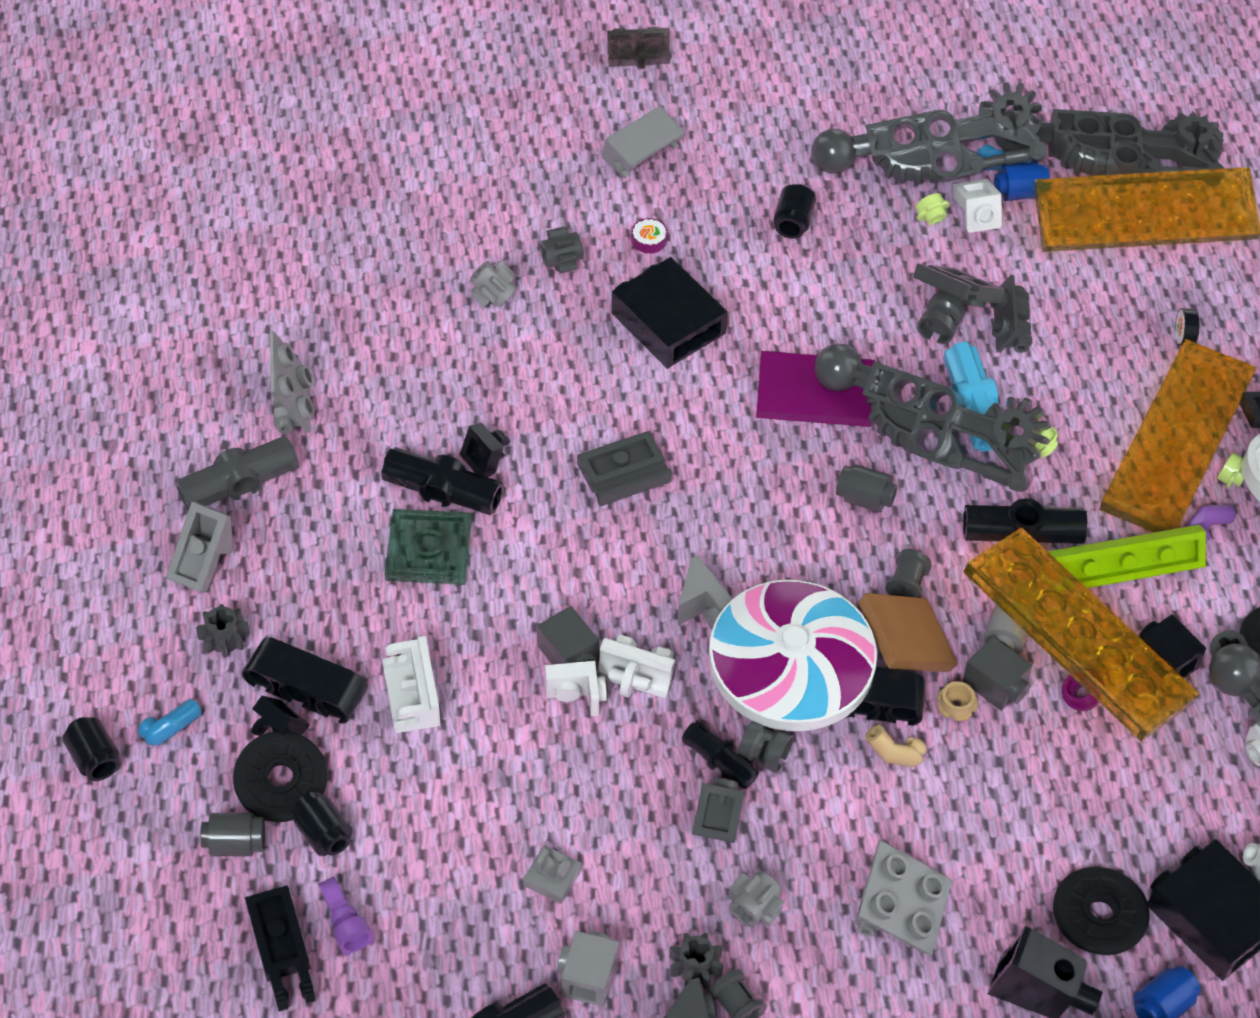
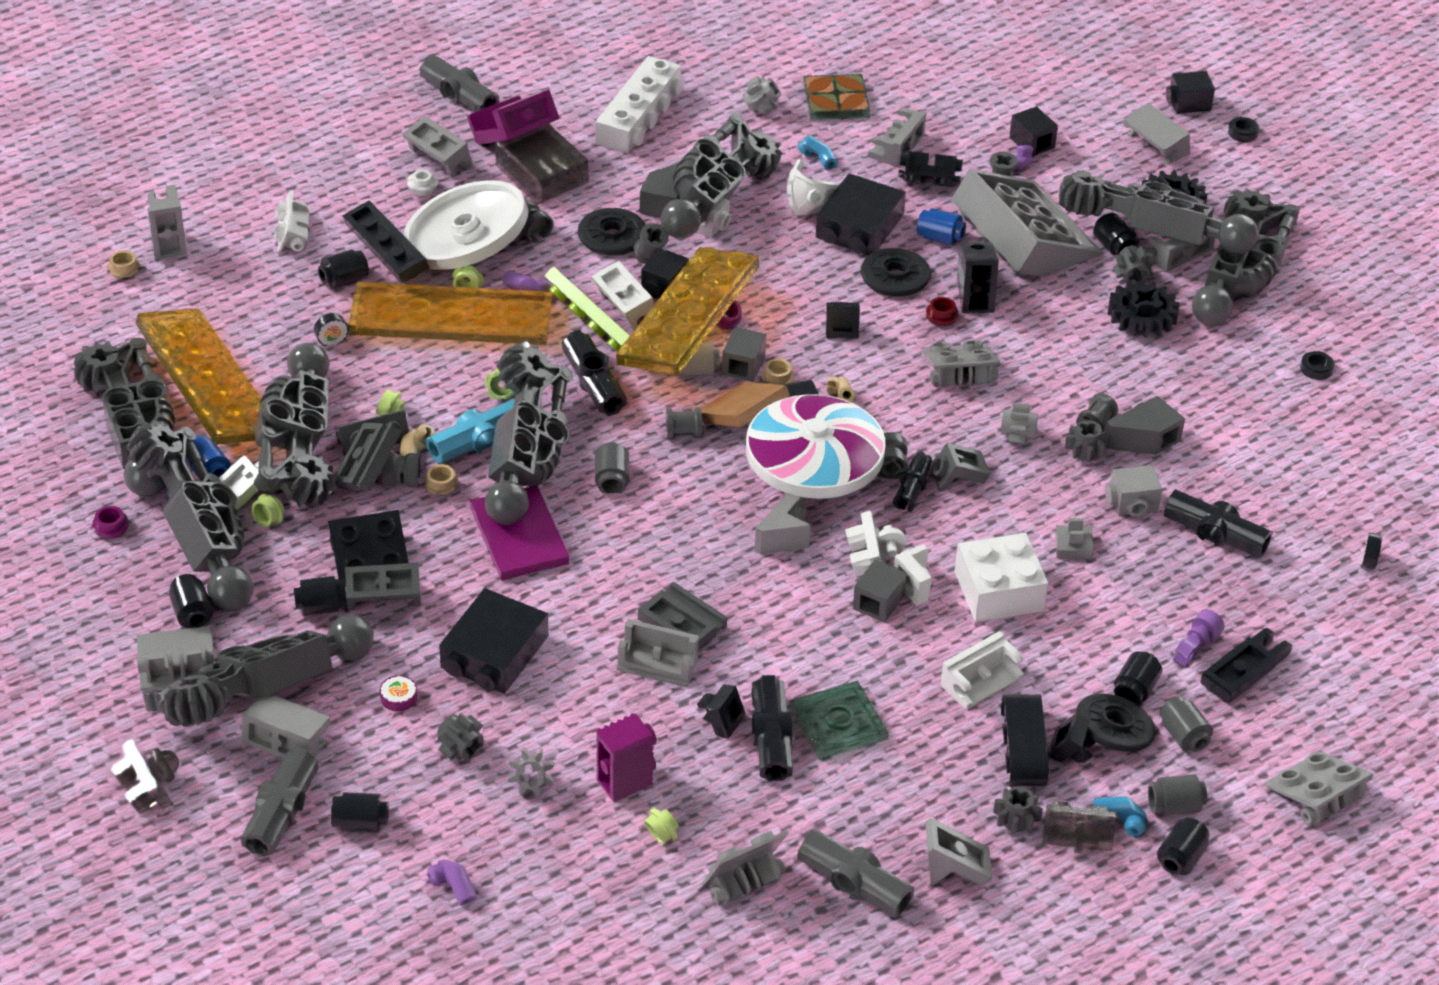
camera: 115 degrees left, 10 degrees down
(88, 921) = (1321, 785): none -> light grey hinge
(154, 776) = (1177, 795): none -> dark grey brick
(162, 687) = (1079, 827): none -> clear smoke hips
(375, 349) = (662, 825): none -> yellowish green plate
(420, 203) = (455, 876): none -> medium lavender arm
(455, 338) = (625, 757): none -> magenta brick
(518, 162) = (359, 812): none -> black brick
(524, 759) = (1001, 577): none -> white brick
(561, 118) = (279, 802): none -> dark grey piece
(586, 430) = (658, 653): none -> light grey hinge
(710, 131) = (259, 670): none -> dark grey arm
(772, 102) = (173, 655): none -> light grey hinge
(779, 252) = (382, 583): none -> dark grey hinge
(832, 117) = (190, 601): none -> black brick
(841, 264) = (367, 541): none -> black hinge
(919, 341) = (441, 479): none -> tan plate
(967, 100) = (110, 522): none -> magenta plate
(986, 345) = (415, 440): none -> tan arm
(1000, 912) = (942, 311): none -> dark red plate
(1023, 801) = (842, 320): none -> black tile
(1048, 342) = (390, 402): none -> yellowish green plate
(1059, 240) = (294, 419): none -> dark grey arm
(1145, 595) = (624, 292): none -> white hinge

